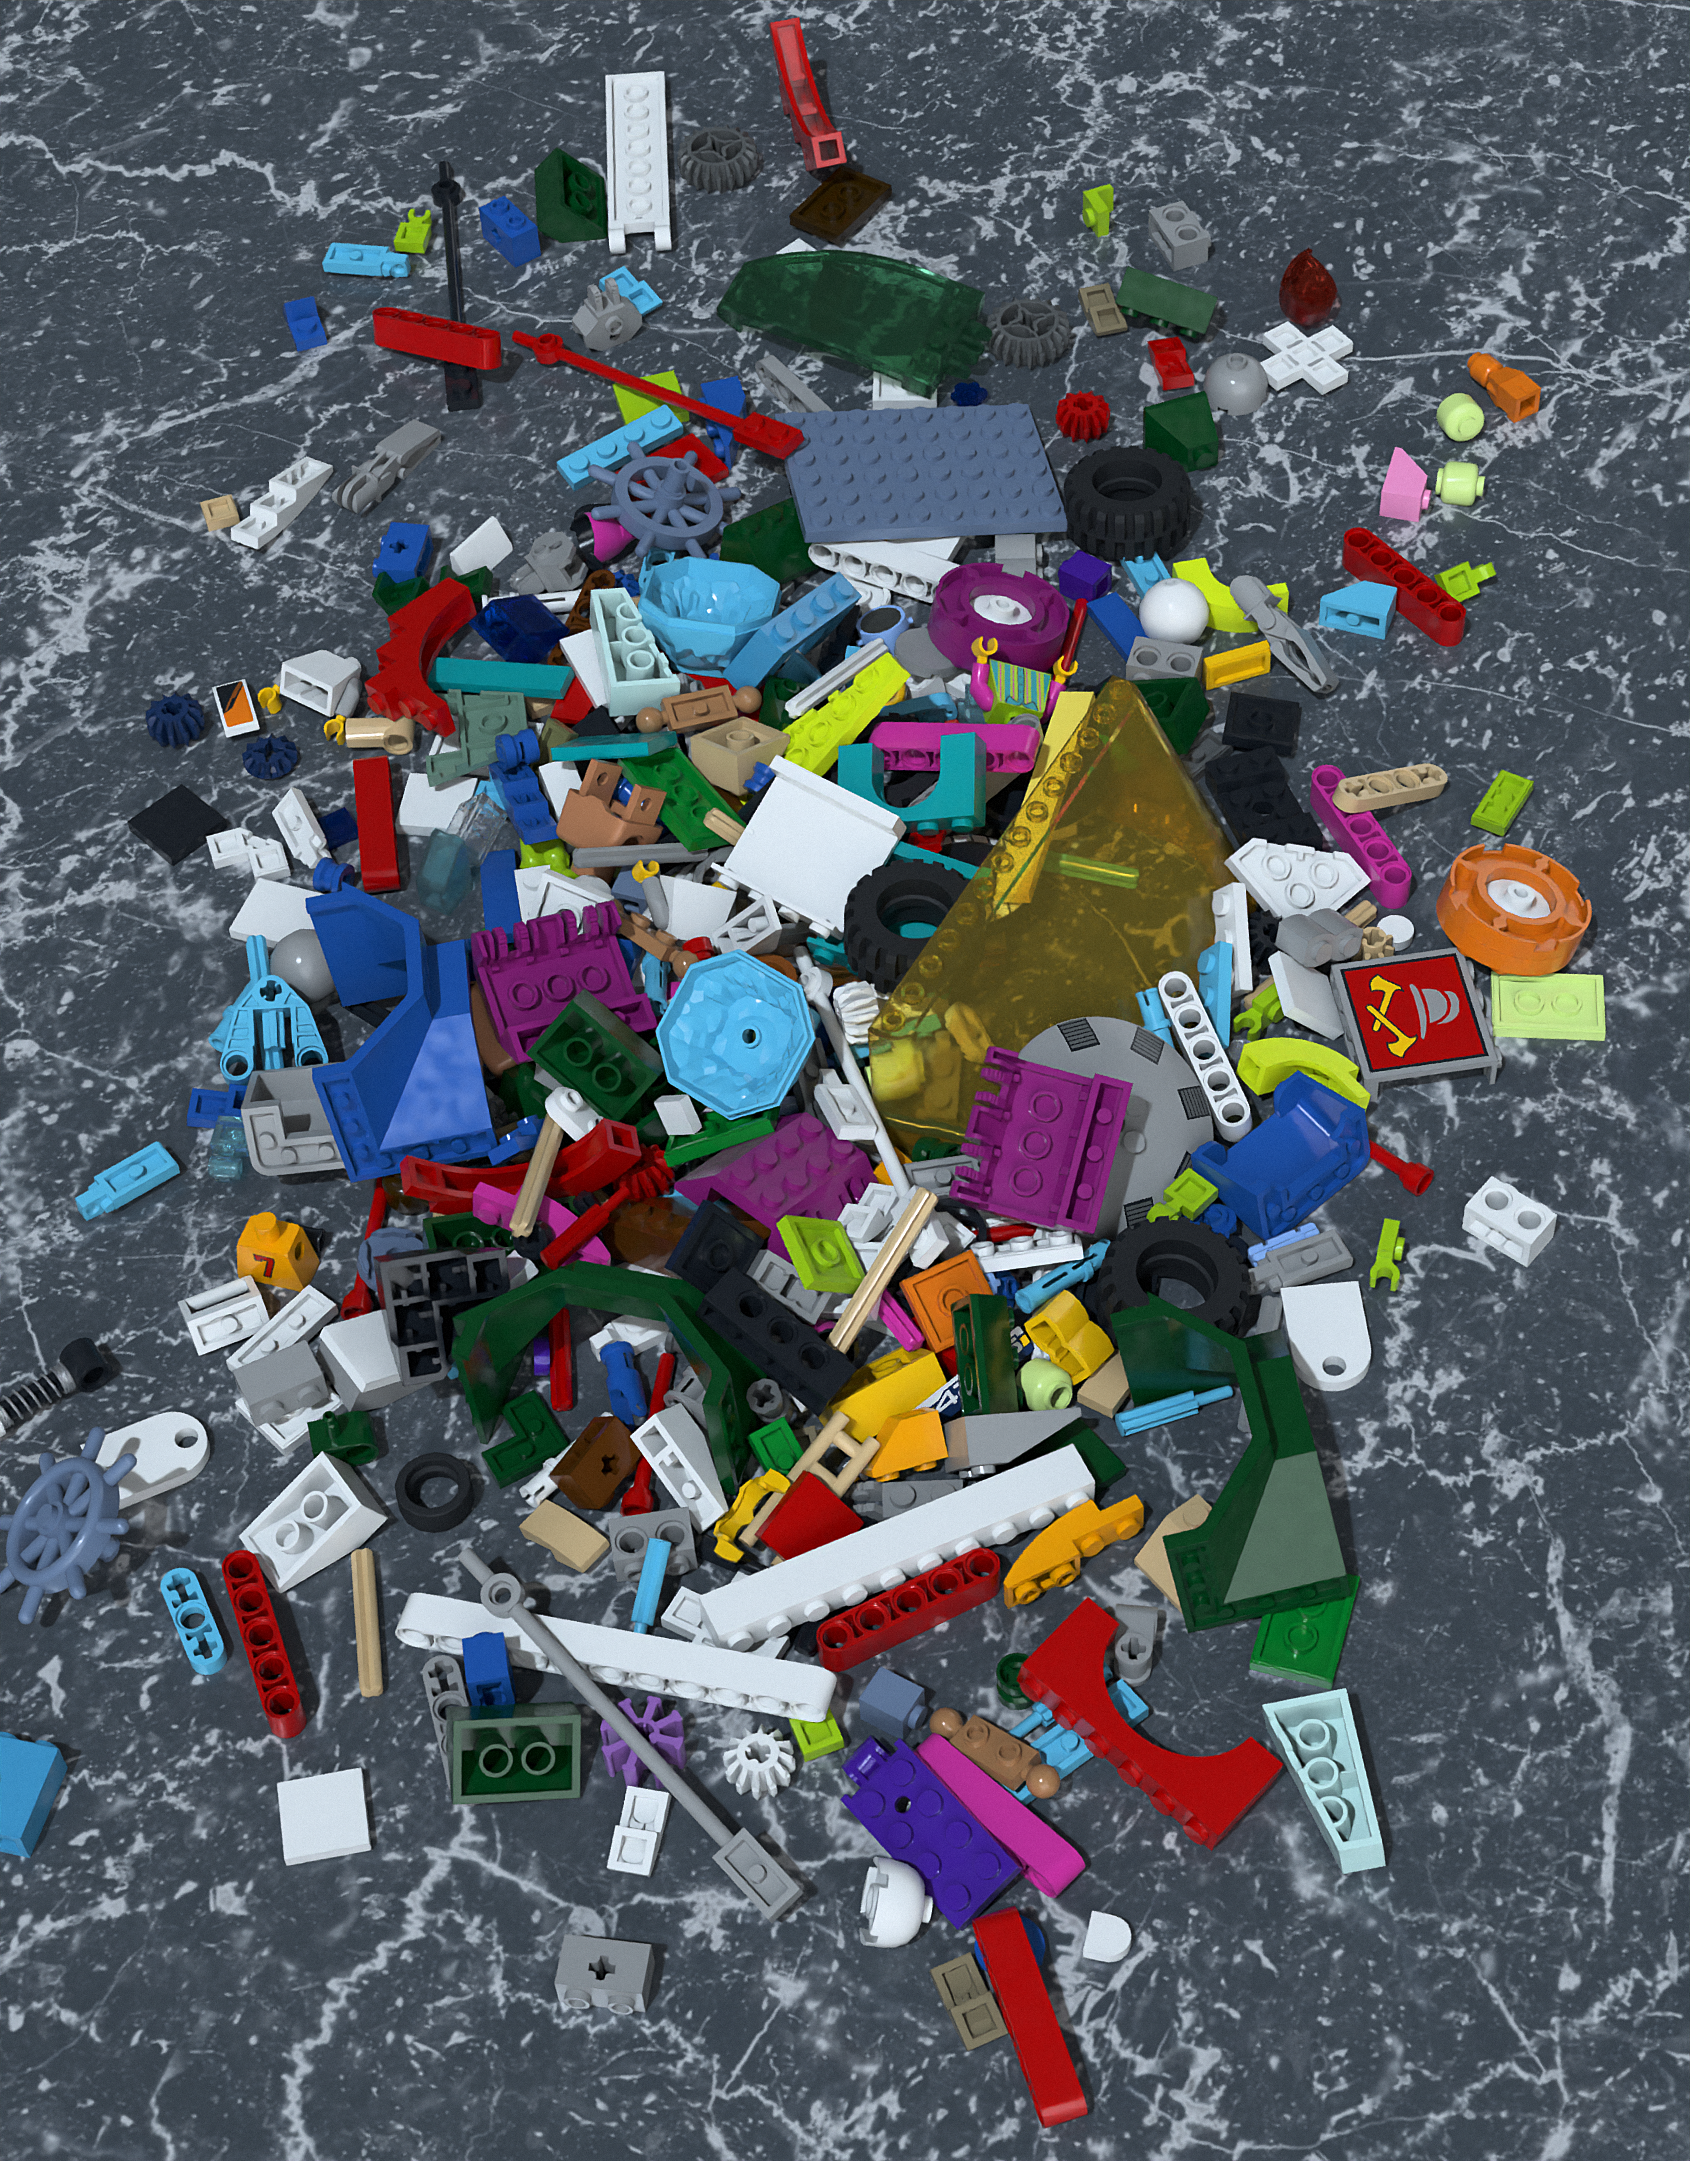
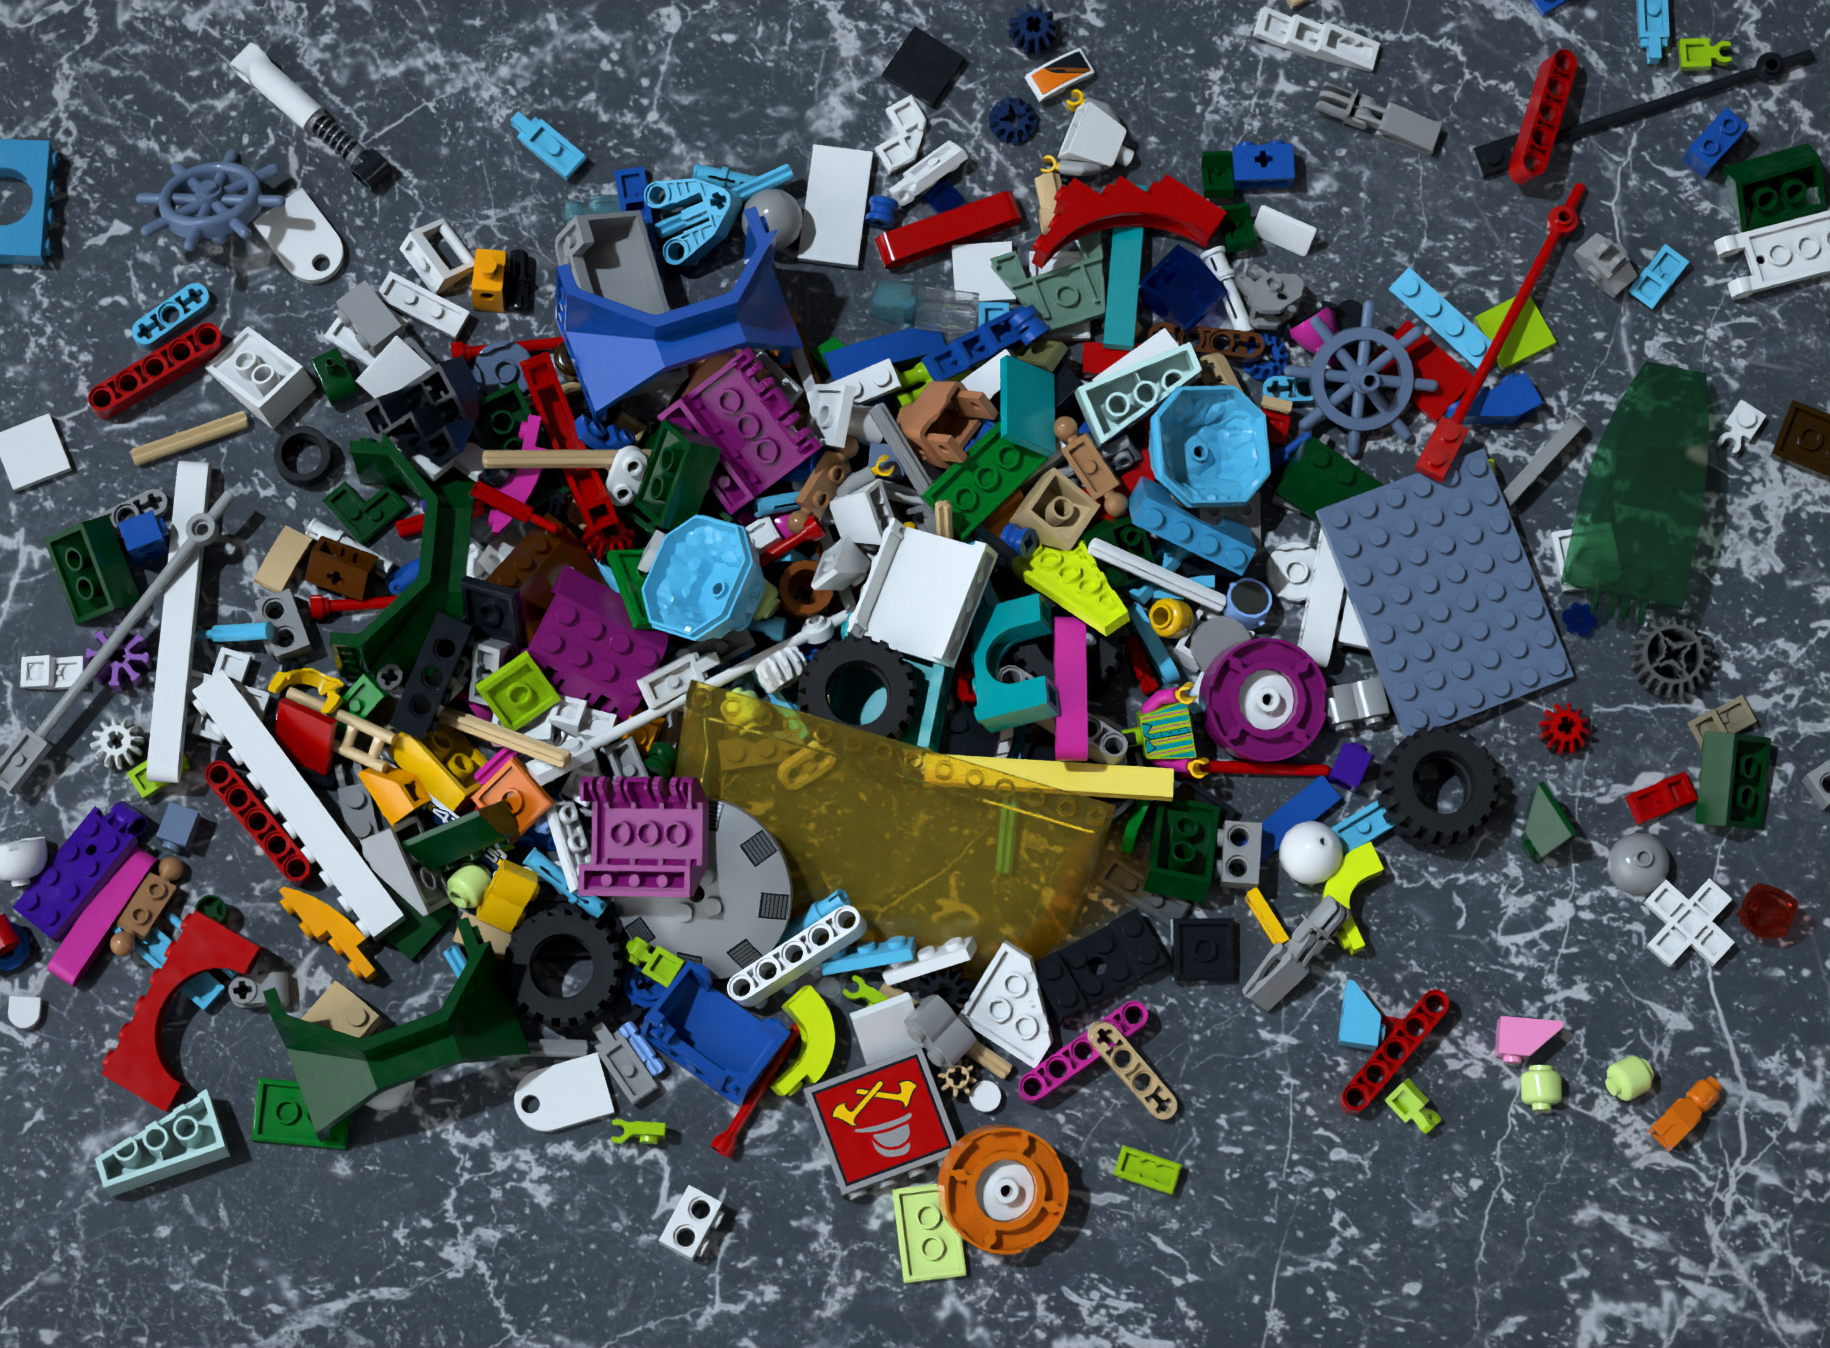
camera: 70 degrees right, 25 degrees up
(683, 1463) = (354, 618): white slope -> none

